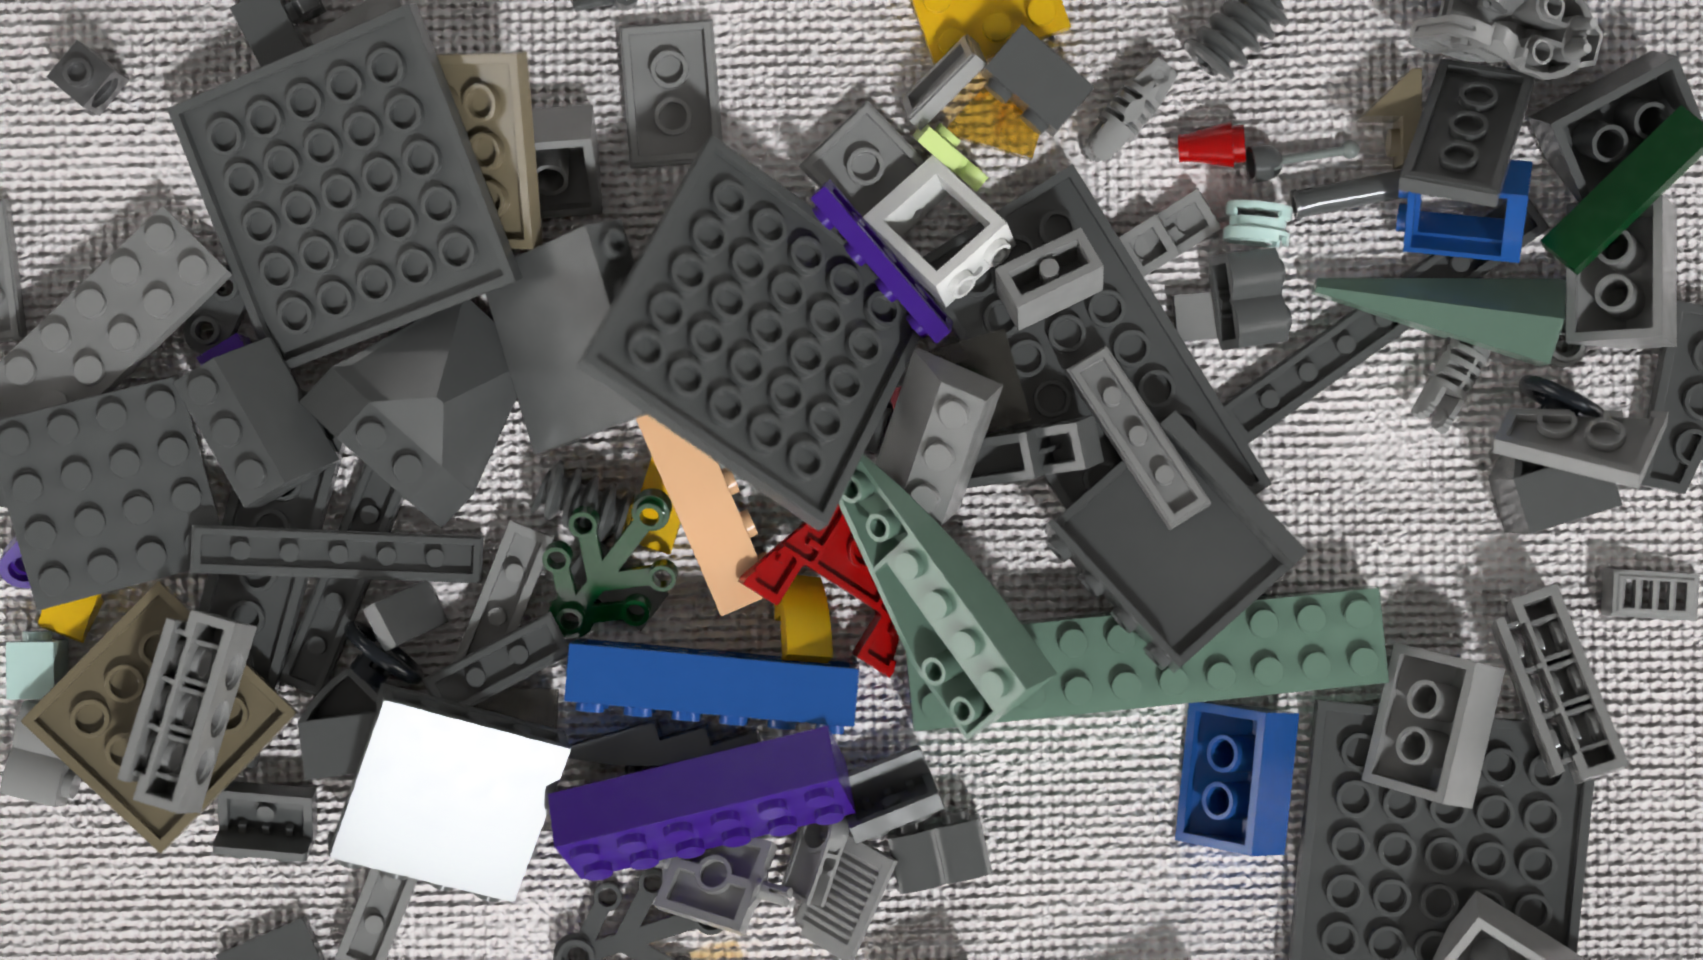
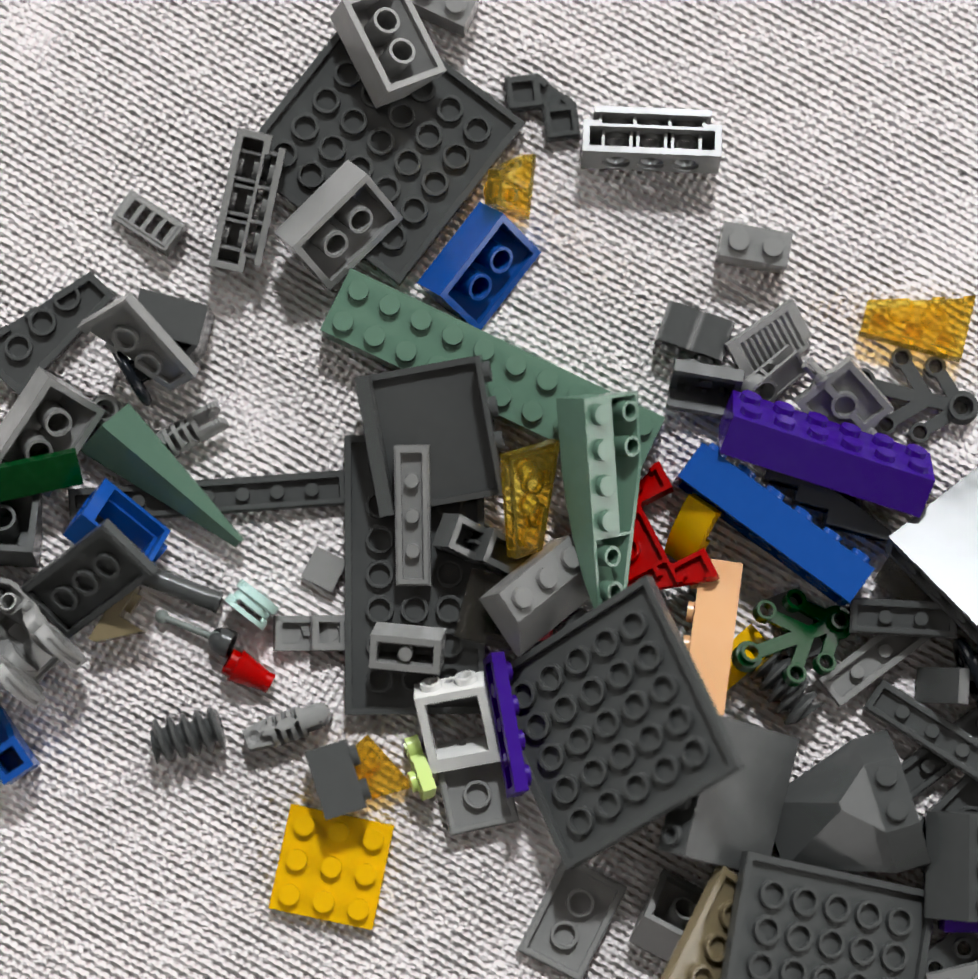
camera: 155 degrees left, 5 degrees down
(943, 81) = (395, 816): light grey tile -> none
(1020, 539) = (527, 494): none -> clear yellow wing
(1249, 298) = (286, 559): dark grey brick -> none
(1259, 894) = (511, 186): none -> clear yellow wing

